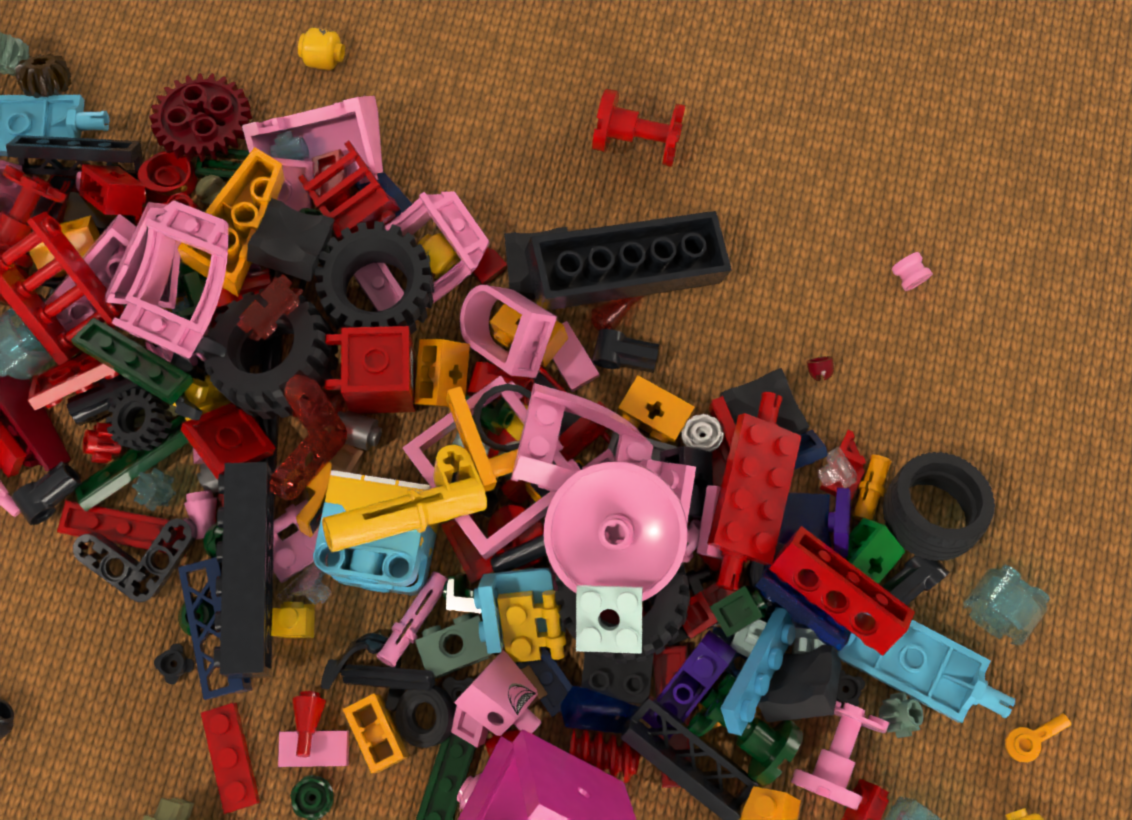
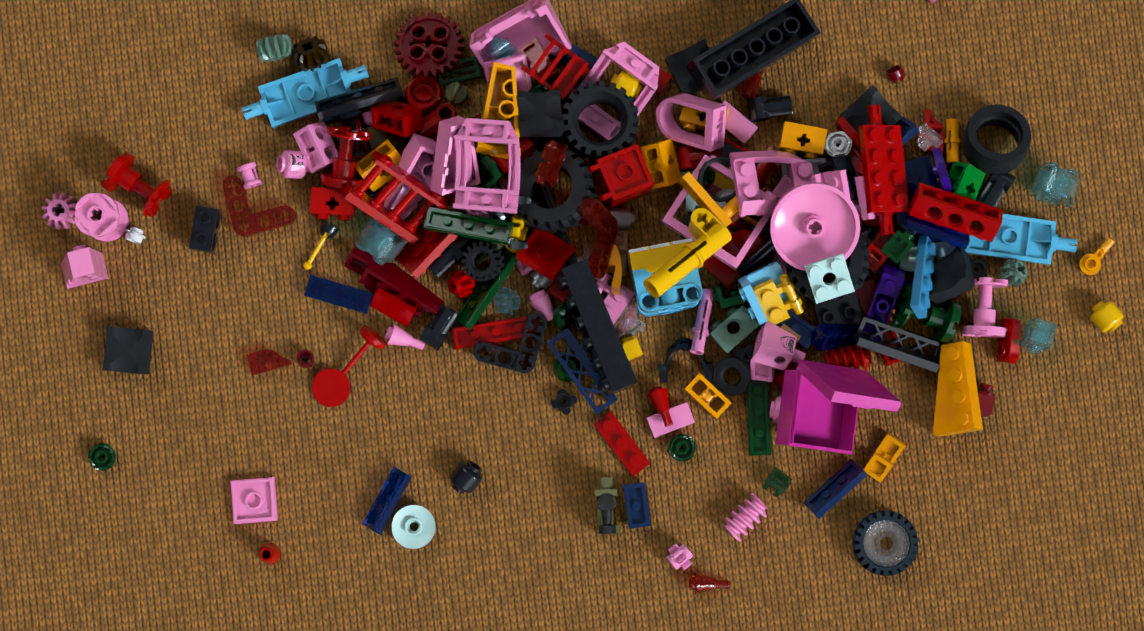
camera: 25 degrees left, 10 degrees up
(388, 677) = (701, 361): black axle -> none

